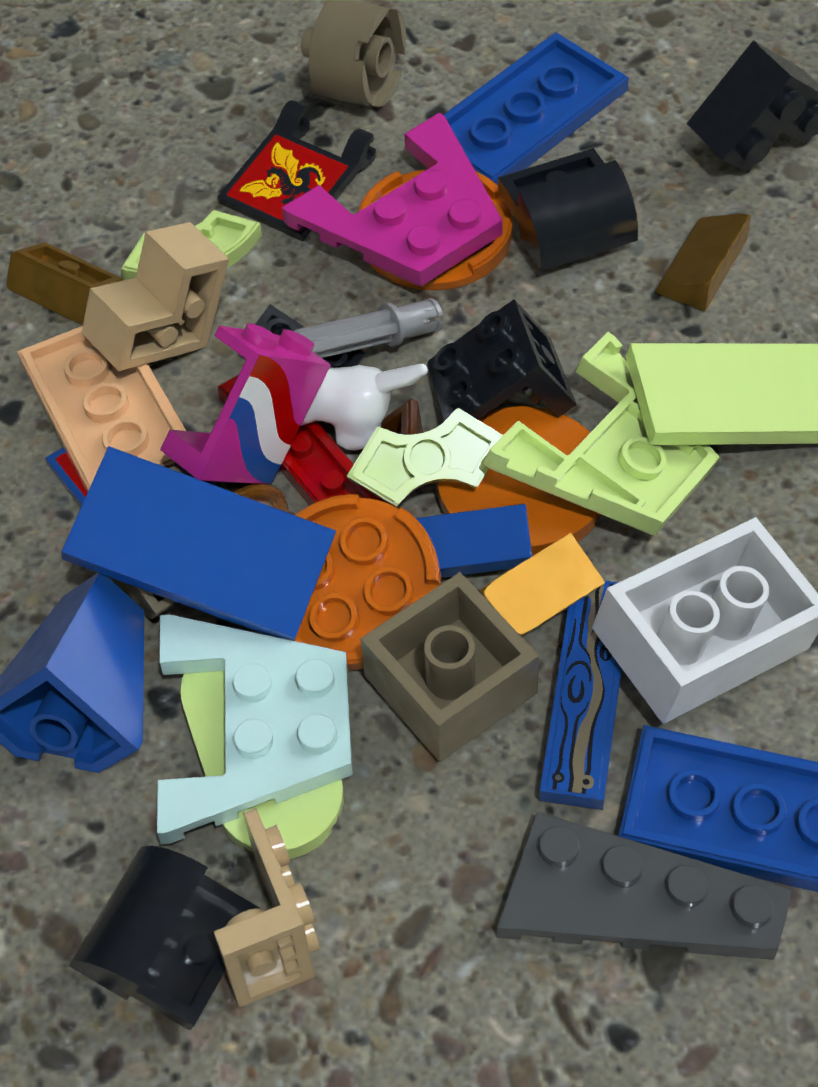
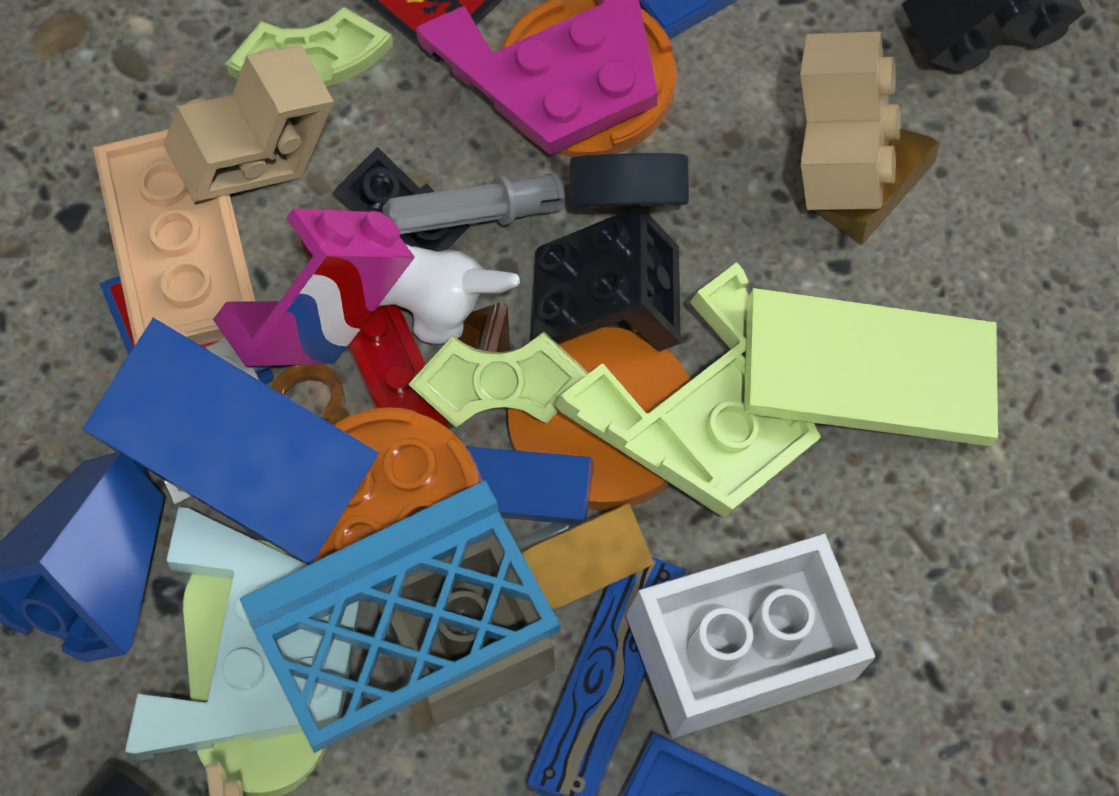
camera: 10 degrees right, 10 degrees up
(55, 279) = (159, 62): pearl gold slope -> none
(349, 625) = (375, 564): none -> dark azure fence
(495, 280) = (629, 180): none -> black wheel
(571, 208) = (738, 88): black brick -> none
(671, 209) = (848, 120): none -> tan brick

